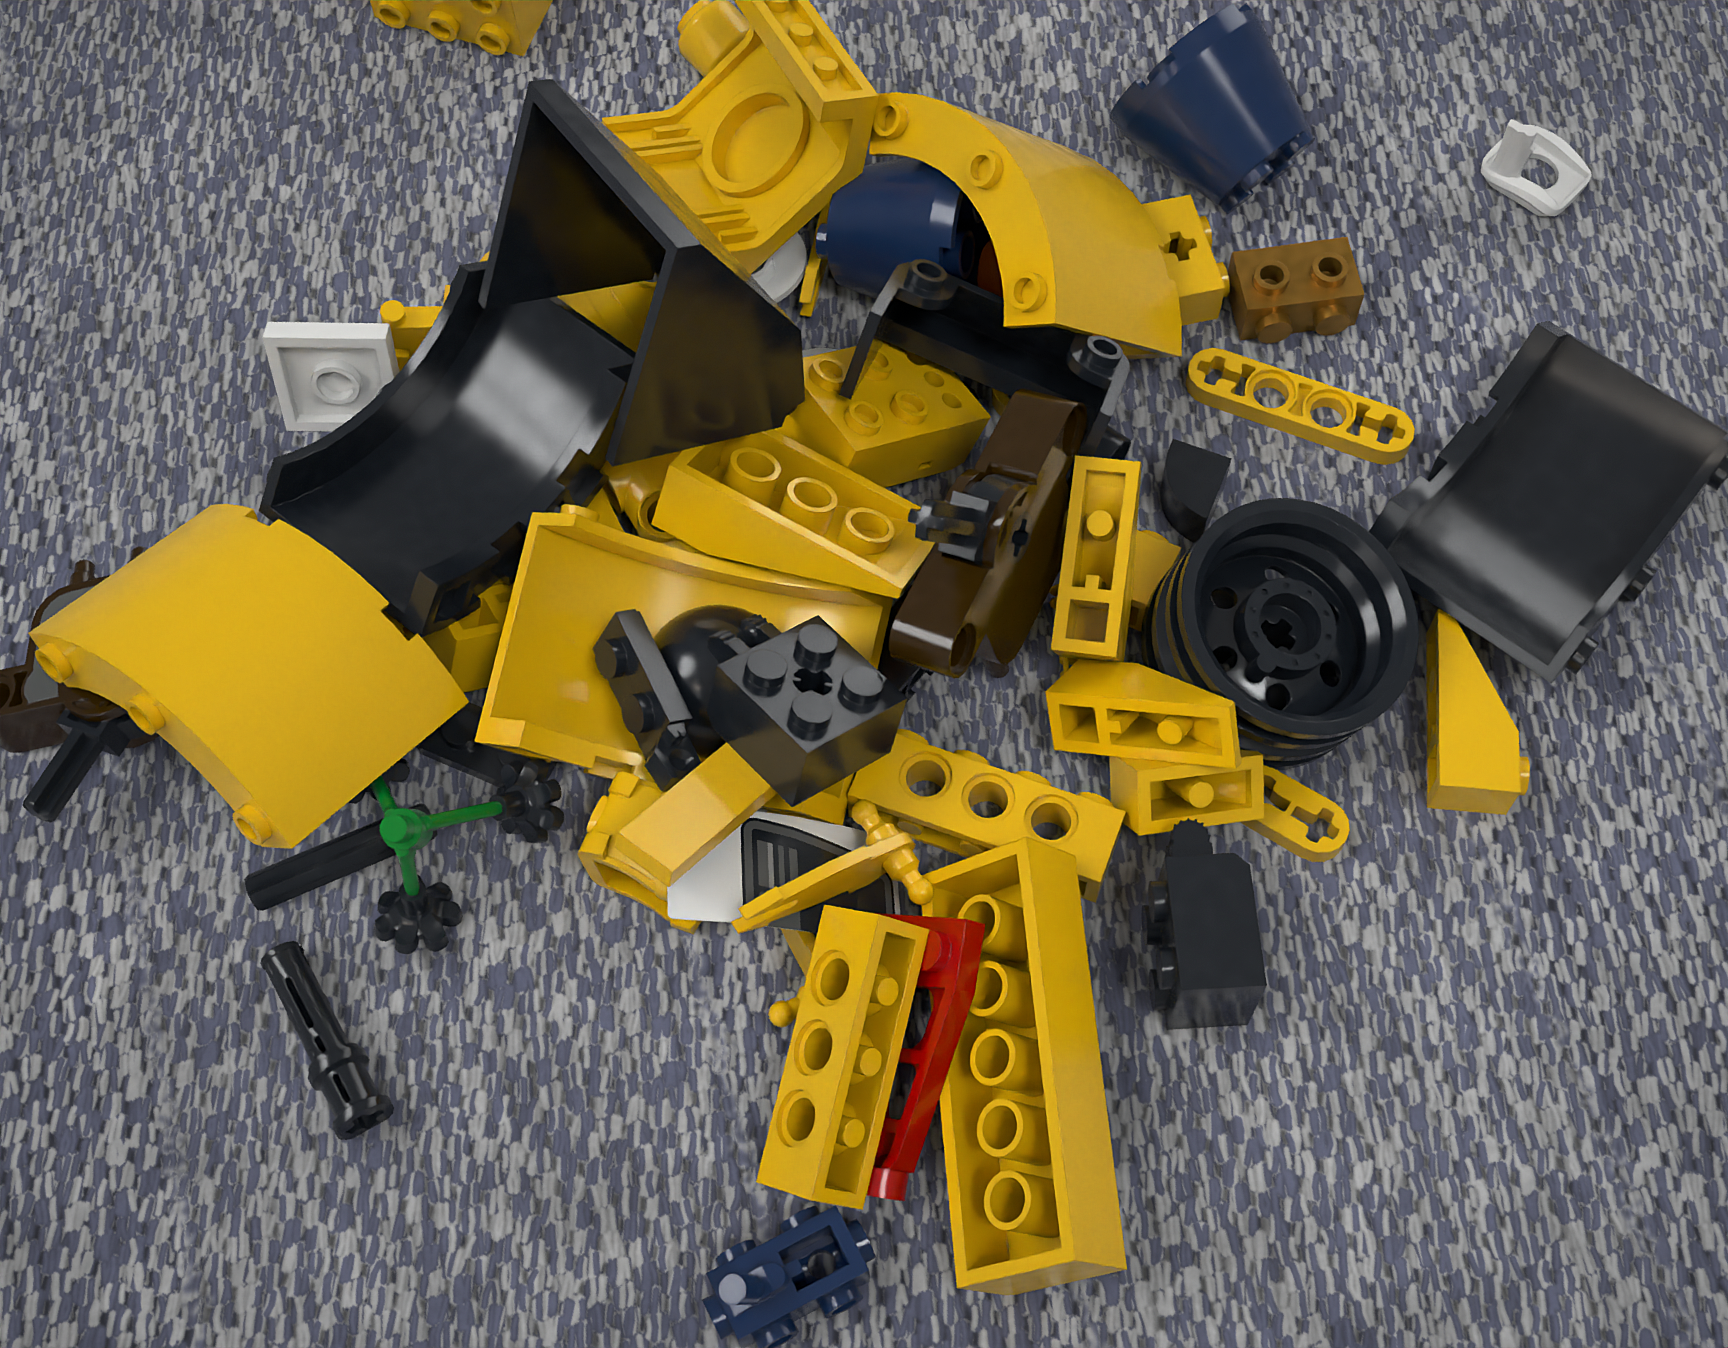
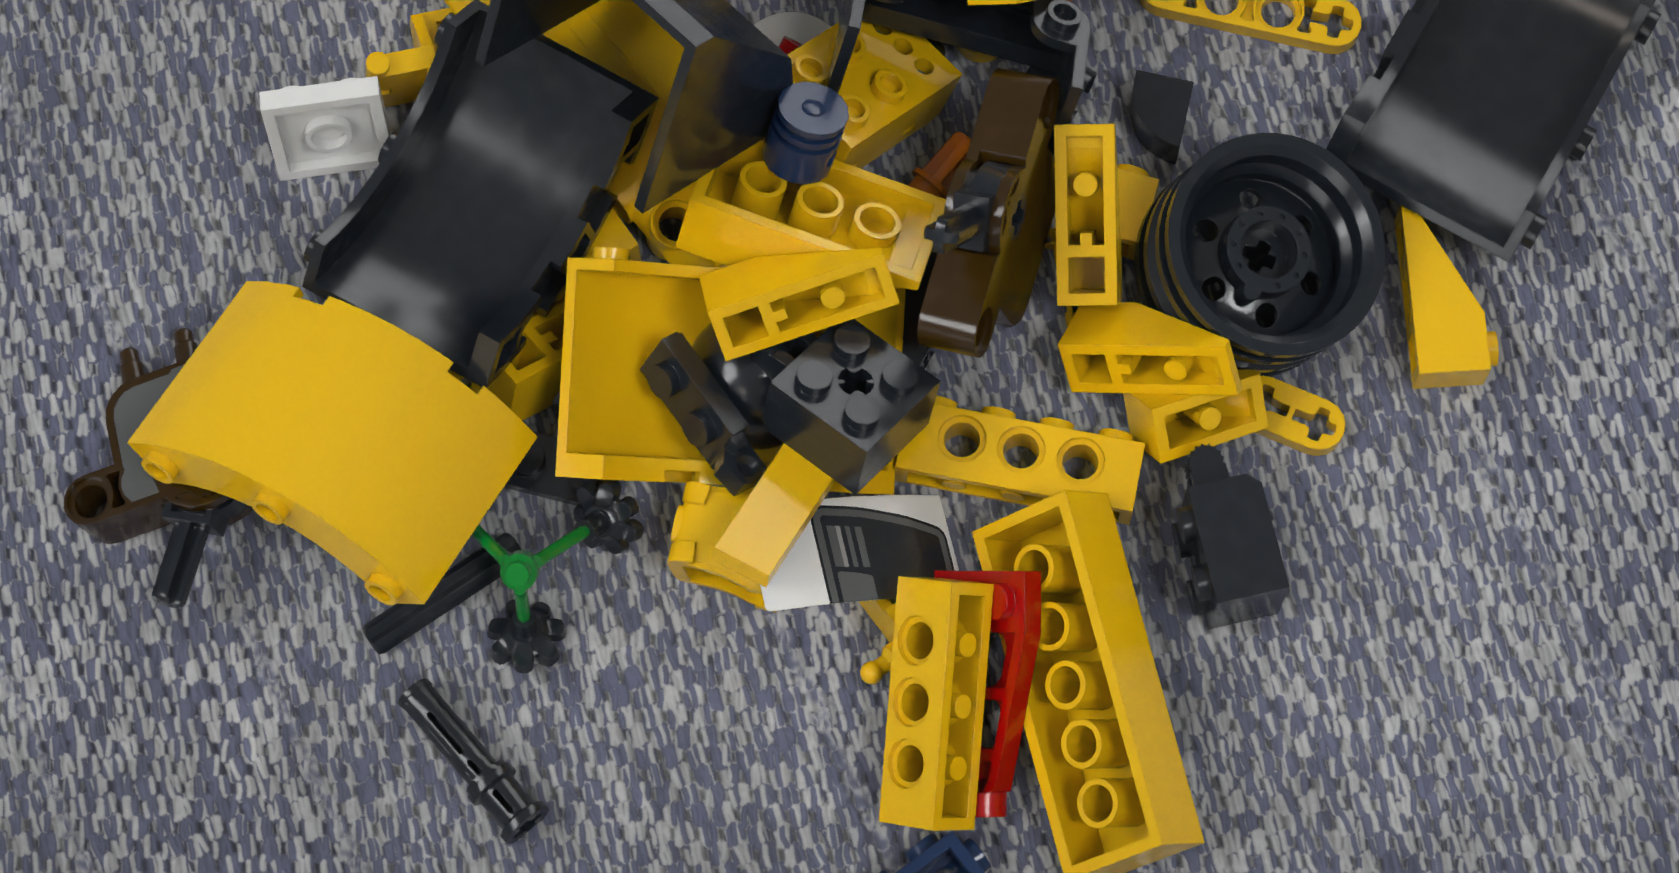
camera: 10 degrees left, 10 degrees up
(764, 585) = (793, 295): none -> yellow slope
(808, 423) = (805, 132): none -> dark blue piece
(886, 852) = (942, 515): yellow piece -> none

